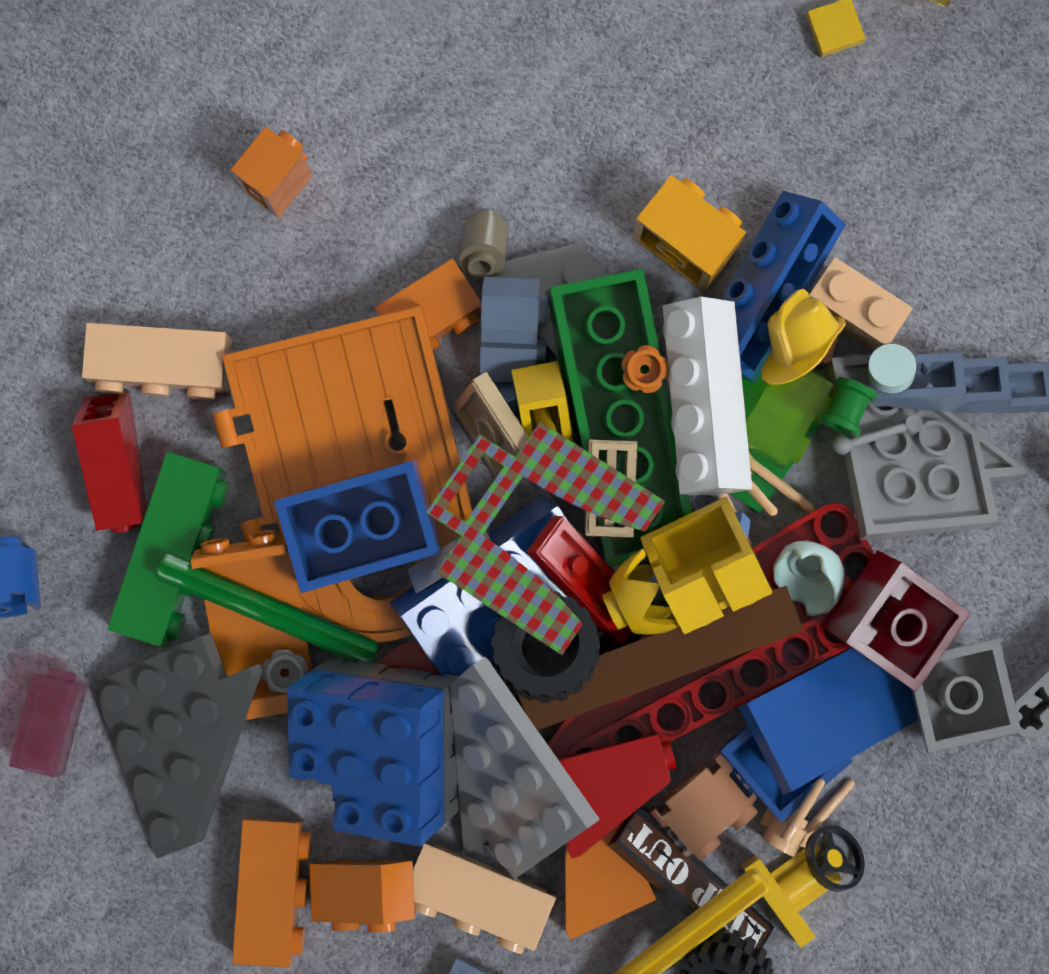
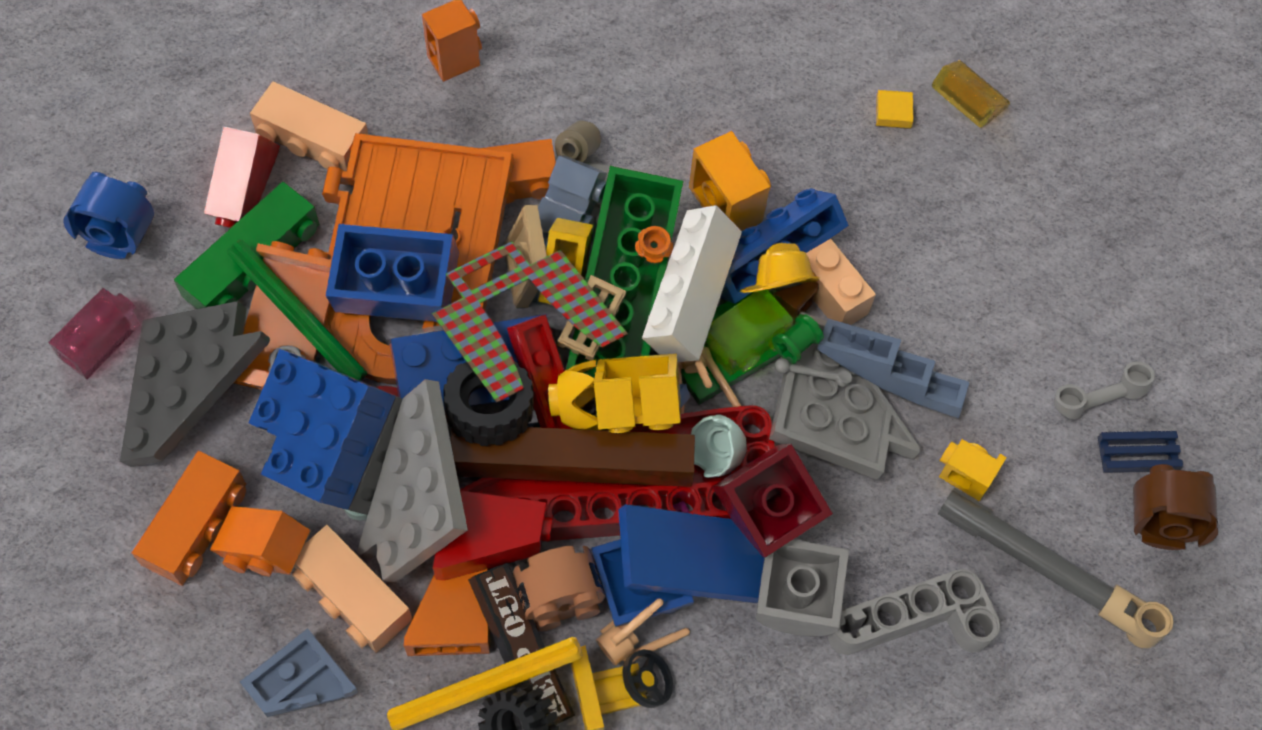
camera: 15 degrees right, 20 degrees down
(891, 368) = (842, 327): light aqua tile -> none

